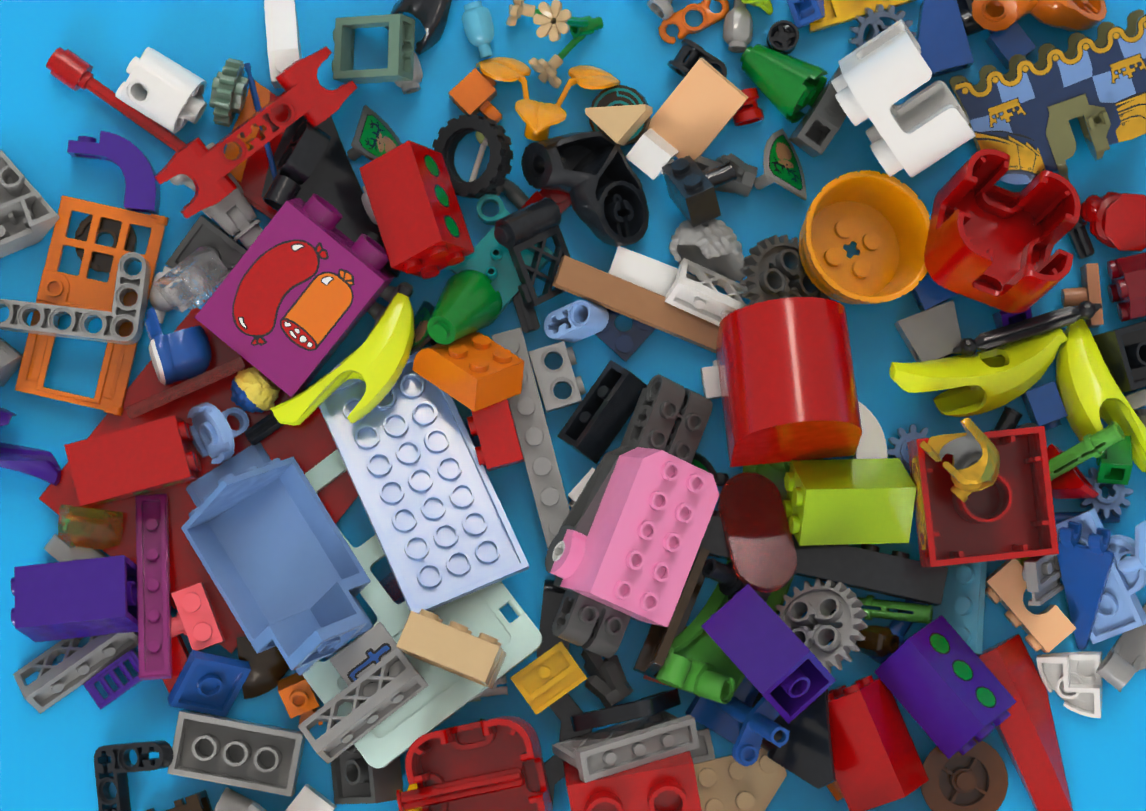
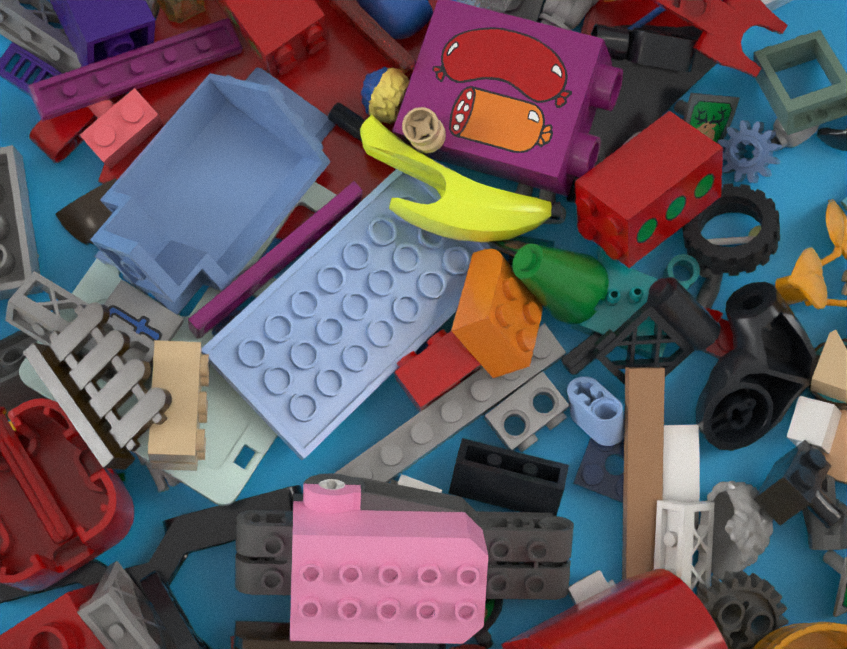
camera: 75 degrees right, 5 degrees down
(209, 683) = (54, 166): blue plate -> none
(212, 431) = (325, 69): light blue tile -> none
(298, 375) = (418, 124): none -> tan wheel
(298, 697) = (72, 264): orange brick -> none
(359, 530) = (274, 261): none -> magenta tile
(406, 725) = (84, 402): none -> fence
(422, 108) = (762, 154): none -> medium blue gear
(475, 94) = (799, 210): orange brick -> none
(548, 678) = (190, 529): yellow plate -> none
(605, 678) = (213, 595): dark grey rock -> none

